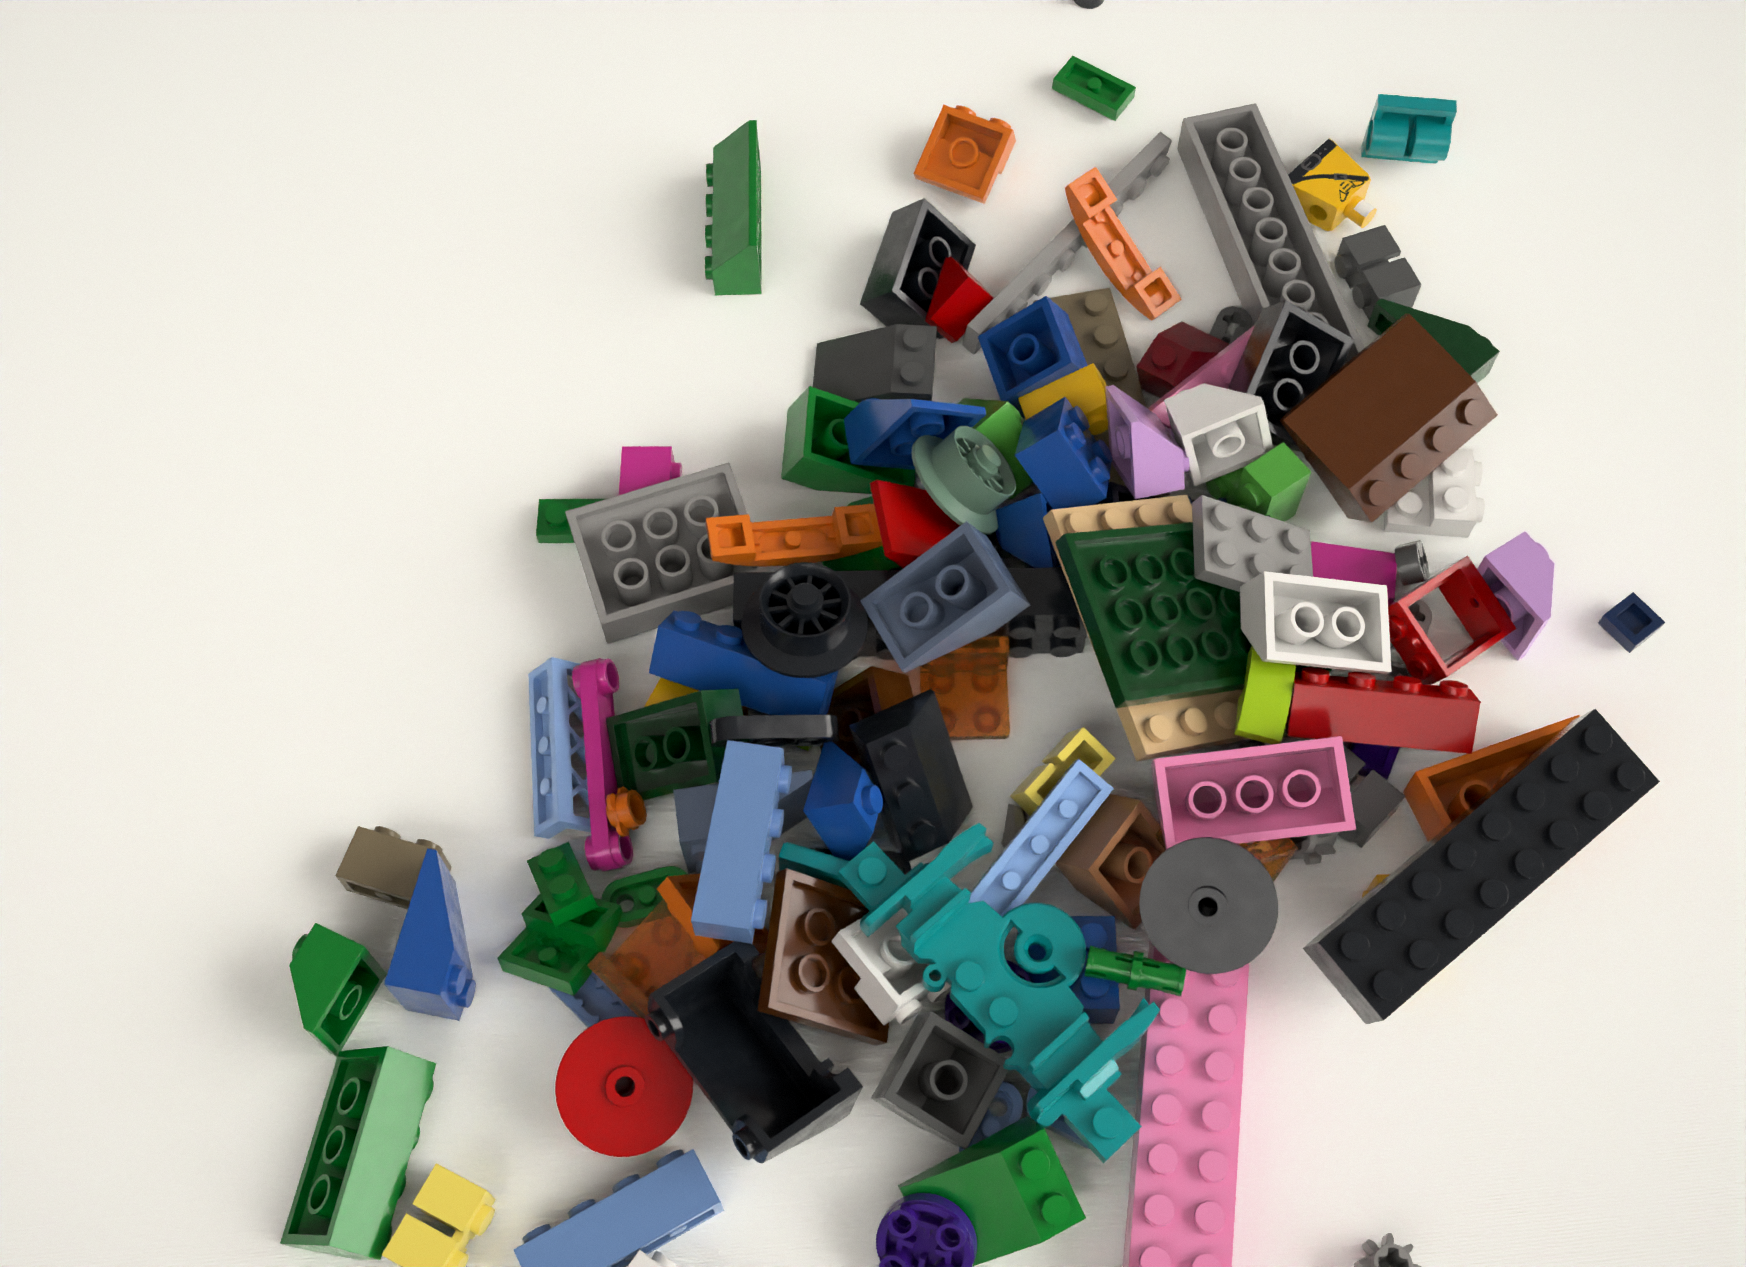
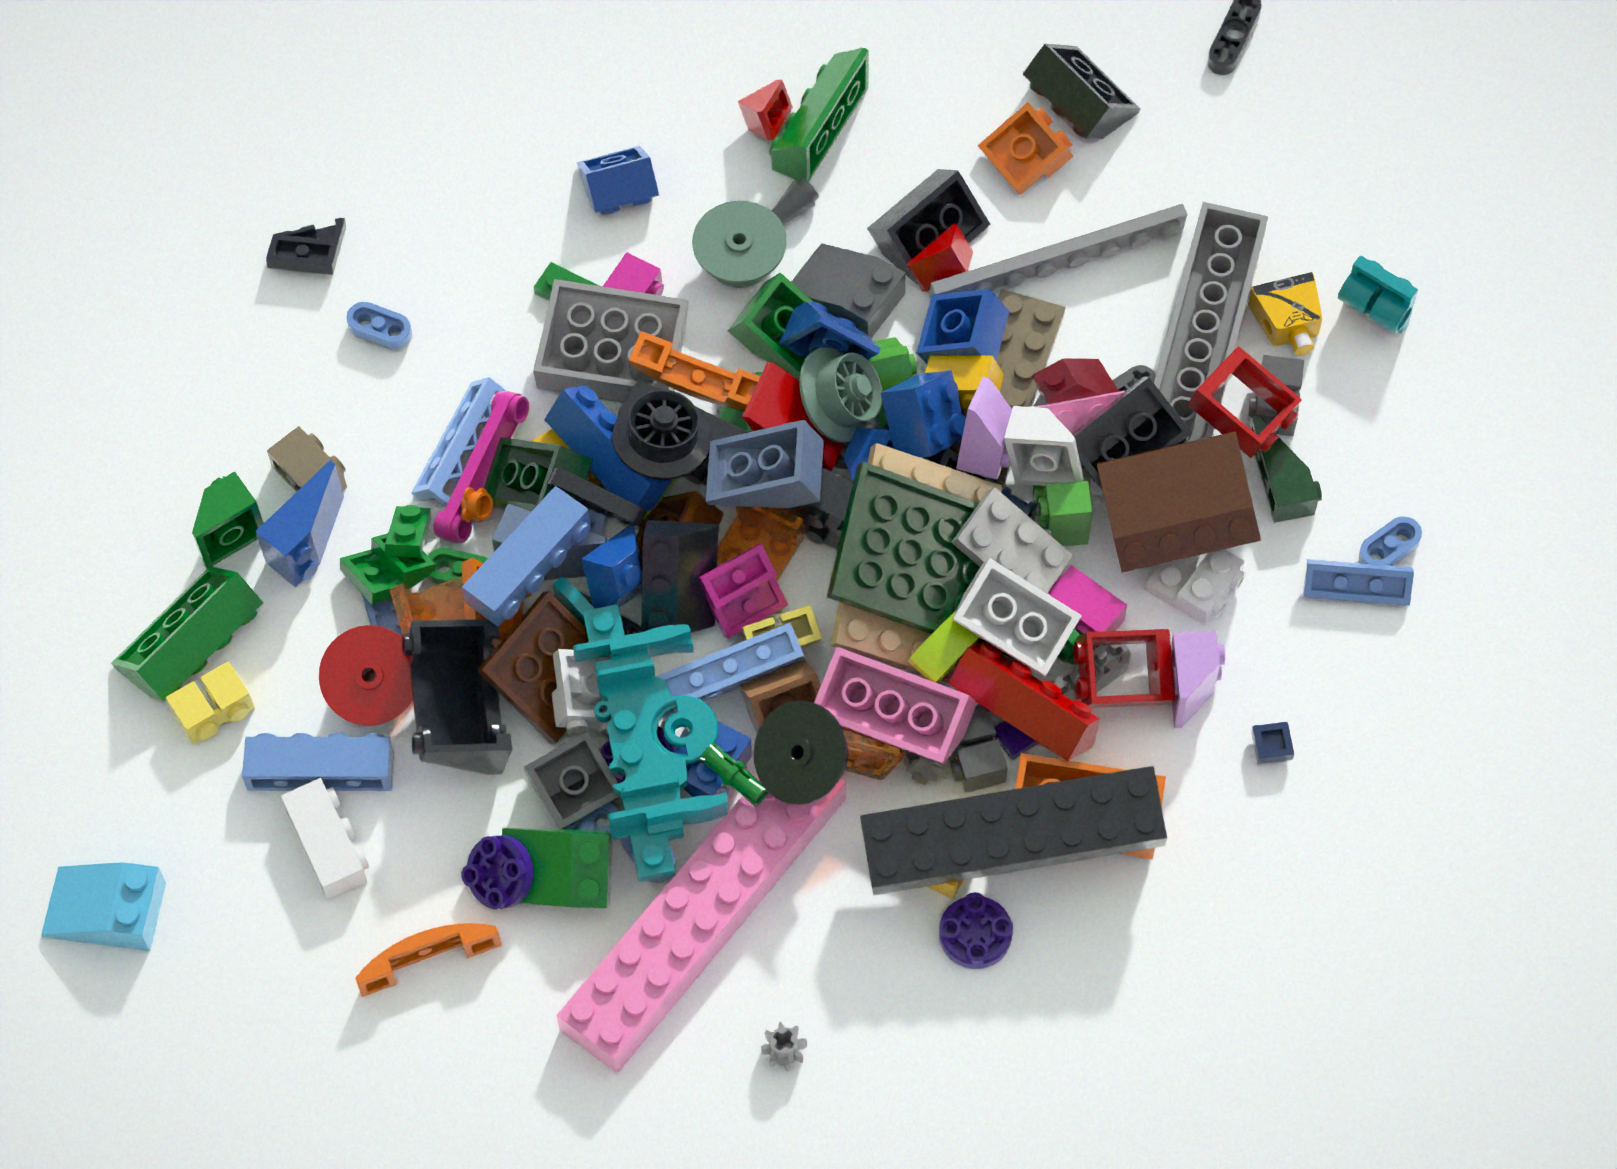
camera: 30 degrees right, 0 degrees up
(247, 618) = (307, 248): none -> black wing
(385, 662) = (382, 324): none -> medium blue plate
(561, 377) = (618, 179): none -> blue slope
(674, 237) = (766, 109): none -> slope
(739, 379) = (739, 242): none -> sand green piece
(764, 311) = (796, 200): none -> dark grey cone
(977, 79) = (1079, 90): none -> black slope
(990, 752) = (743, 591): none -> dark pink slope
(1093, 88) = (1165, 142): green plate -> none
(1115, 250) = (1086, 278): orange slope -> none
(1377, 261) = (1262, 384): none -> red window
(1412, 562) = (1133, 615): dark grey beam -> none
(1488, 1001) = (975, 931): none -> dark purple tile
(1587, 368) = (1387, 545): none -> medium blue plate
(1588, 416) = (1358, 582): none -> medium blue plate

